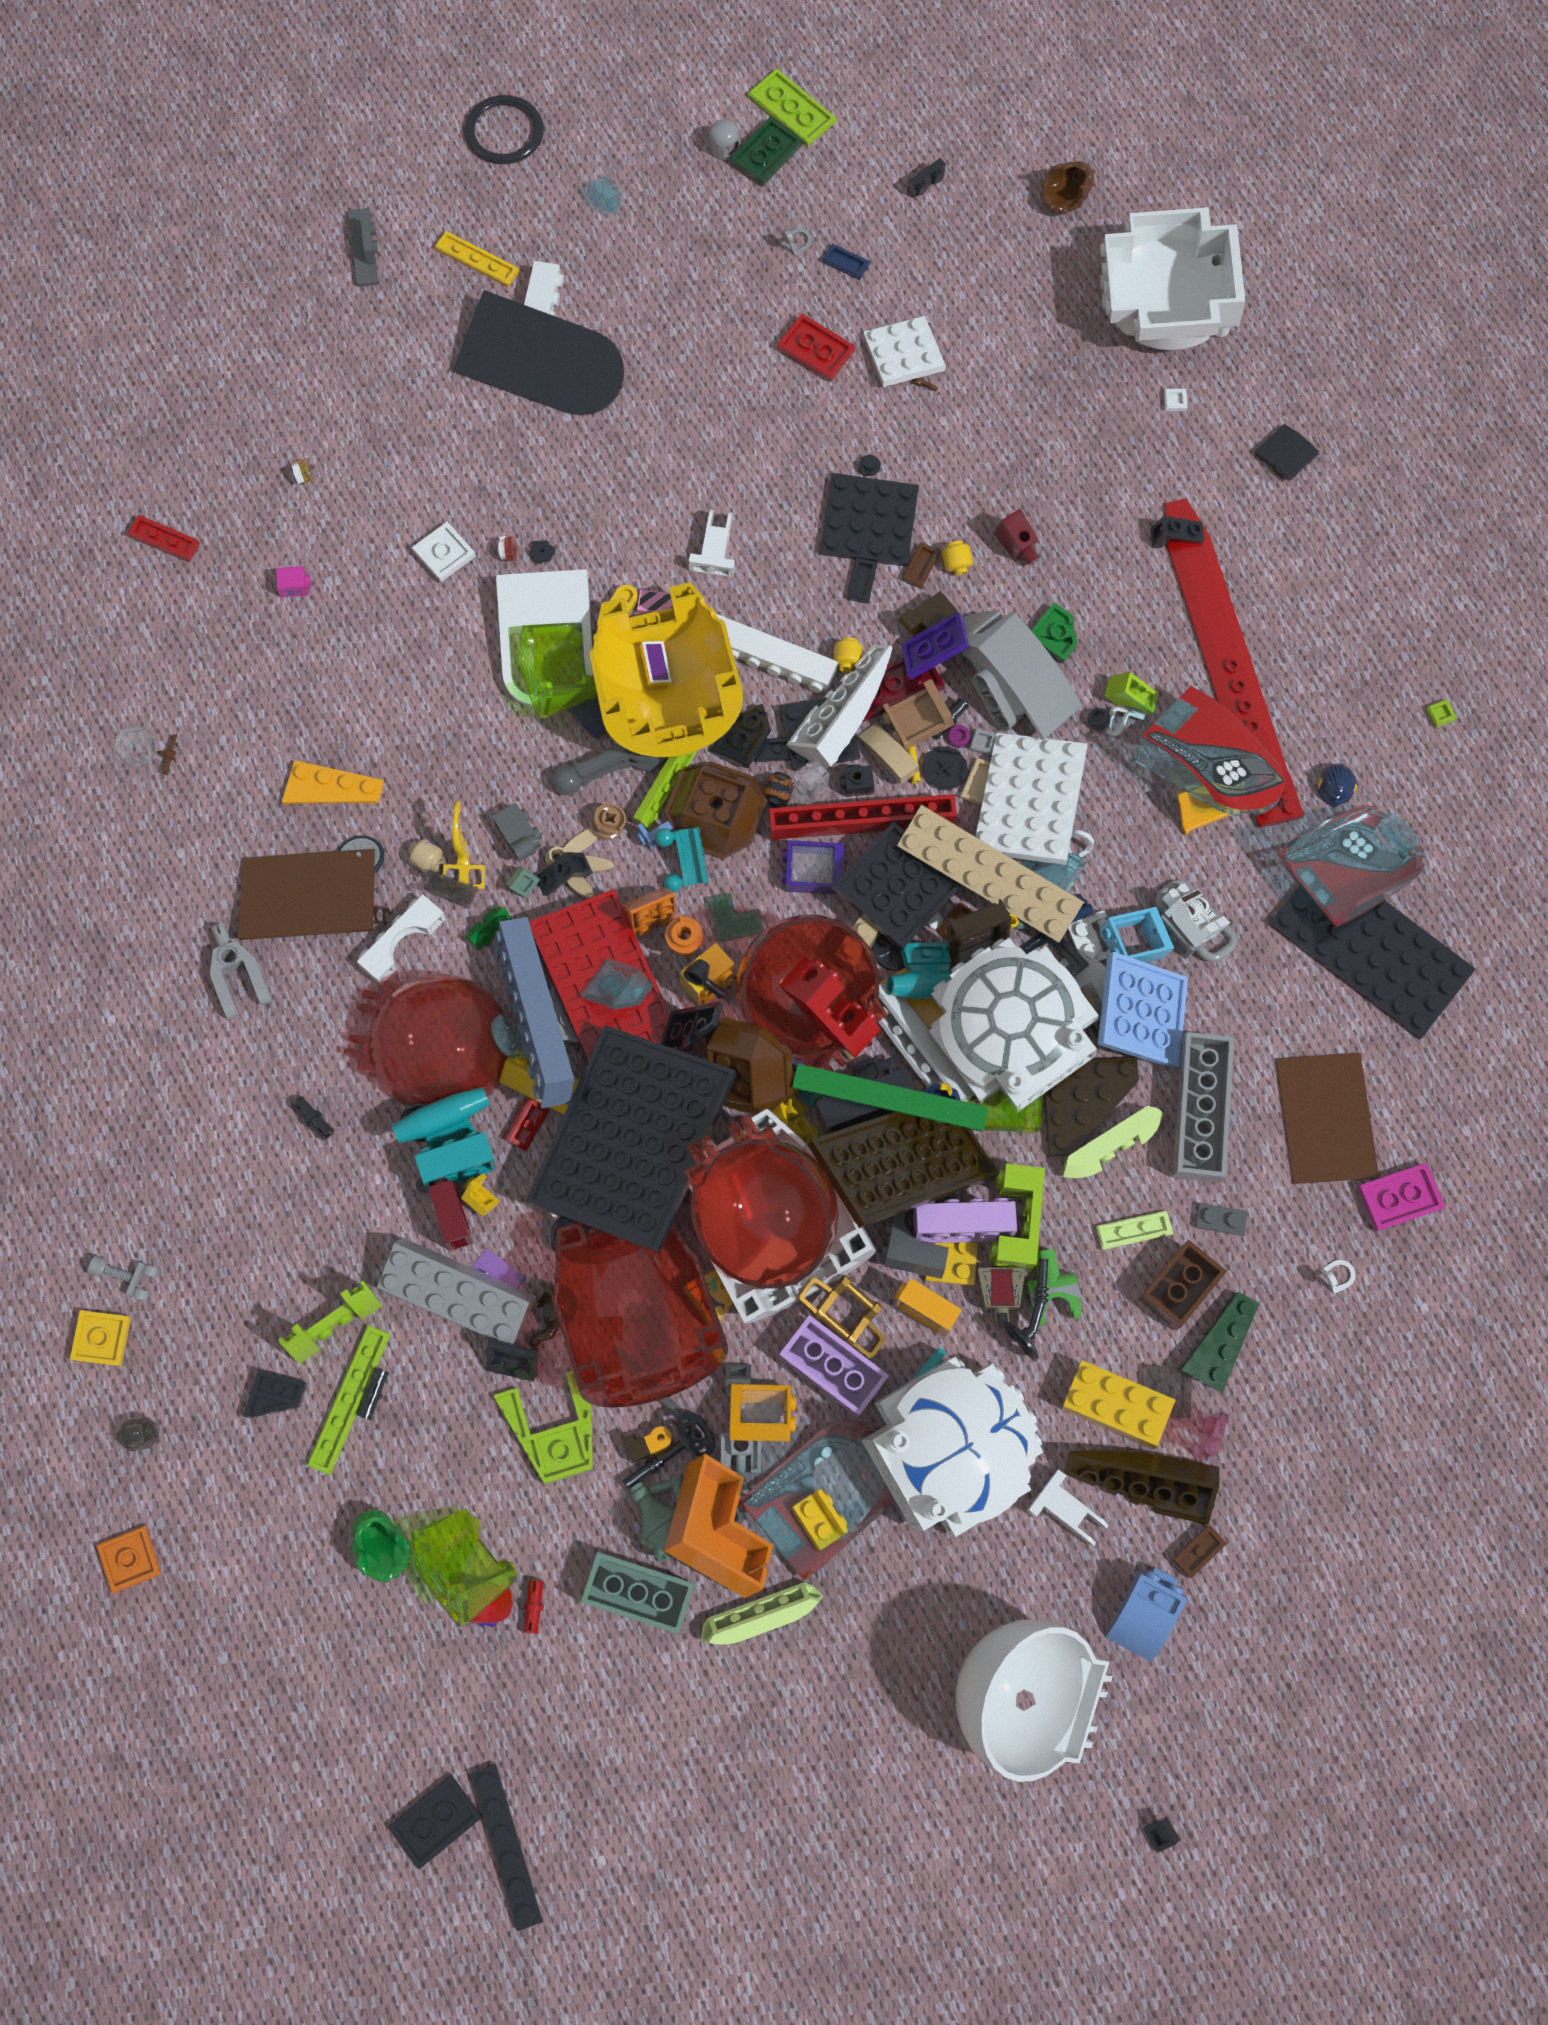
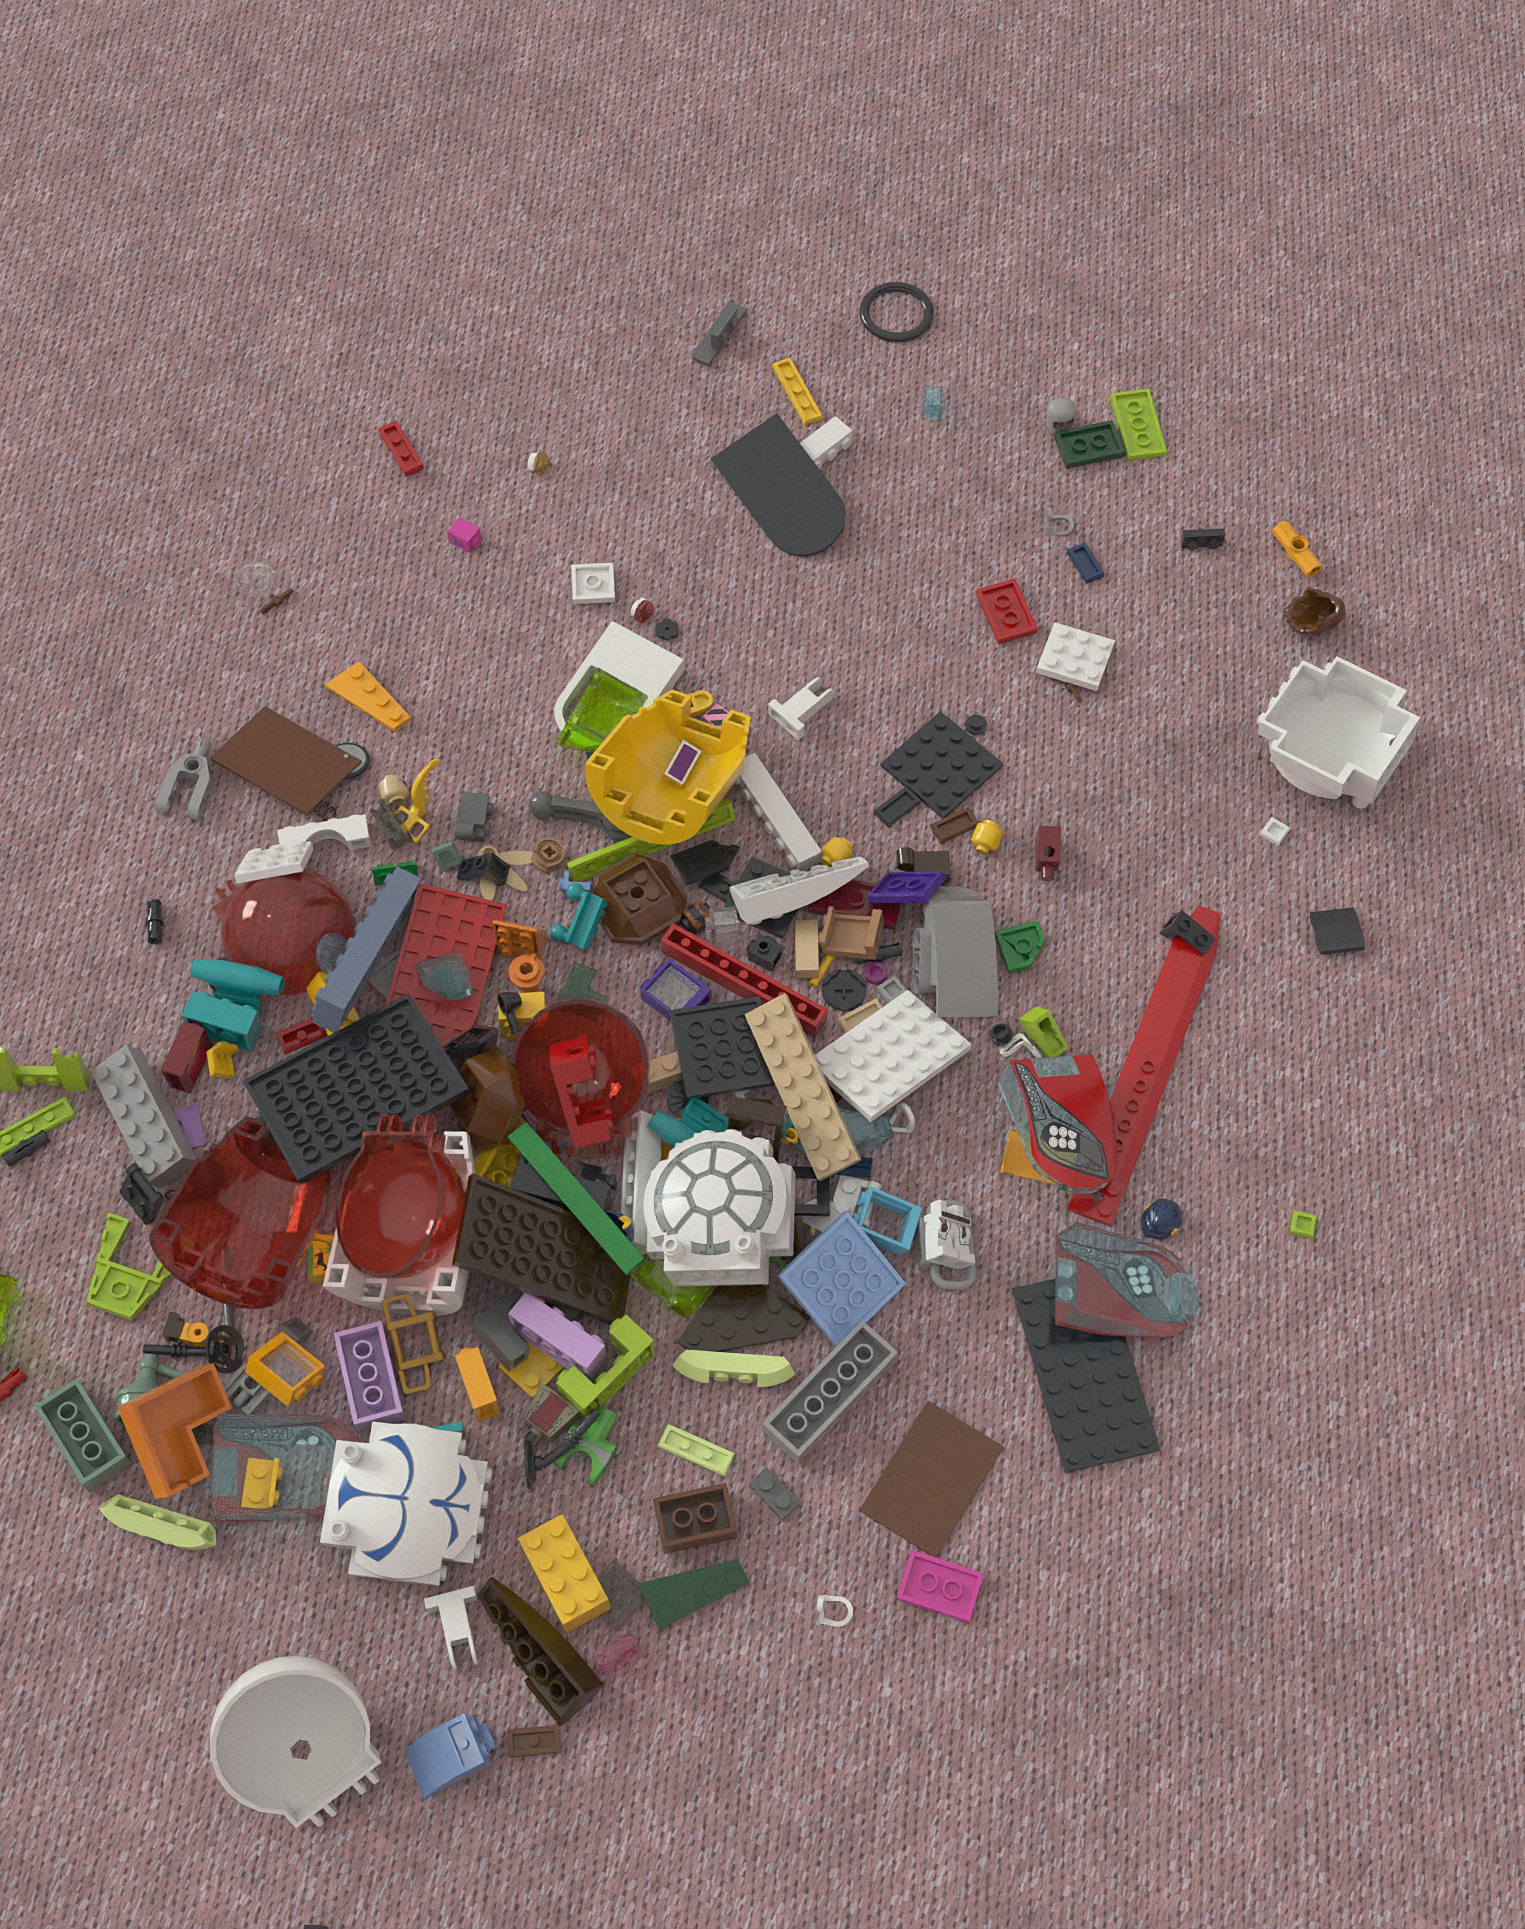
camera: 40 degrees right, 10 degrees down
(387, 992) = (274, 861): none -> white plate
(1008, 138) = (1297, 549): none -> light orange piece

